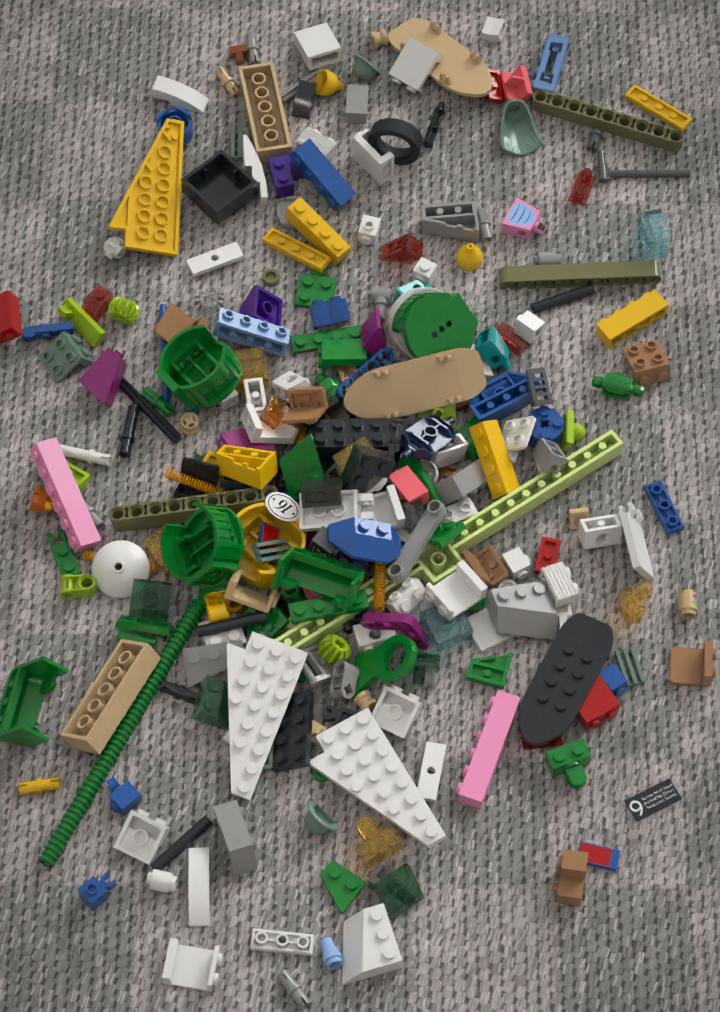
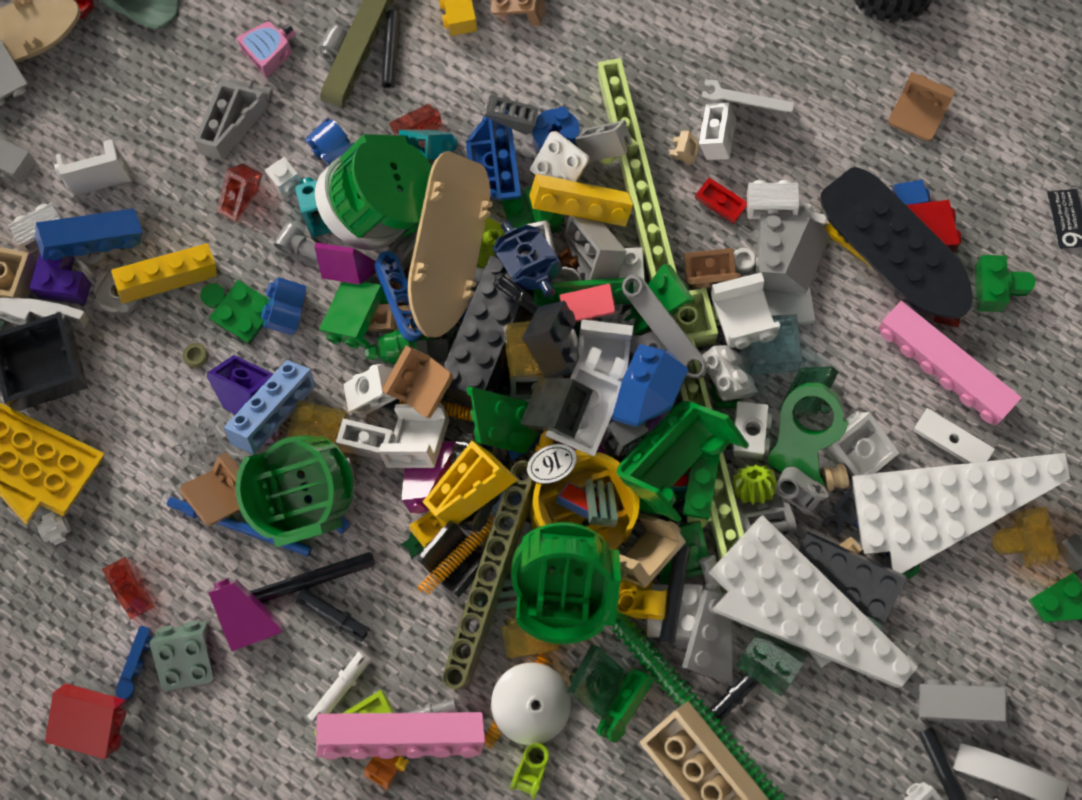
camera: 60 degrees left, 10 degrees up
(64, 555) = (478, 770): green hinge -> none
(82, 322) = (142, 612): lime hinge -> none
(123, 310) = (155, 552): lime gear -> none
(133, 637) = (640, 722): green axle -> none
(157, 401) = (305, 562): green axle -> none
(189, 419) = (355, 530): tan wheel -> none
(223, 256) = (135, 396): white tile -> none
(271, 413) = (401, 426): clear orange plate -> none
(296, 250) = (173, 309): yellow tile -> none
(311, 341) = (311, 338): green plate -> none
(318, 820) = (977, 593): sand green hat -> none
(369, 230) = (191, 215): white brick -> none
(376, 585) = (702, 397): light orange piece -> none
(397, 621) = (769, 387): magenta beam -> none
(400, 129) = (78, 119): black tyre -> none
(434, 125) = (82, 88): black piece -> none
(466, 286) = (328, 141): none -> blue brick
(469, 257) = (284, 123): yellow helmet -> none
(490, 670) = (844, 320): green wing -> none
(517, 563) = (719, 235): white brick -> none
(528, 326) = (413, 97): white brick -> none
(571, 431) = (575, 105): lime tile -> none
(618, 386) = (537, 37): green piece -> none
(626, 652) = (894, 173): sand green tile -> none
(630, 602) = (816, 140): clear yellow brick -> none
(667, 516) = (695, 58): blue tile -> none
(687, 604) = (842, 82): tan brick -> none

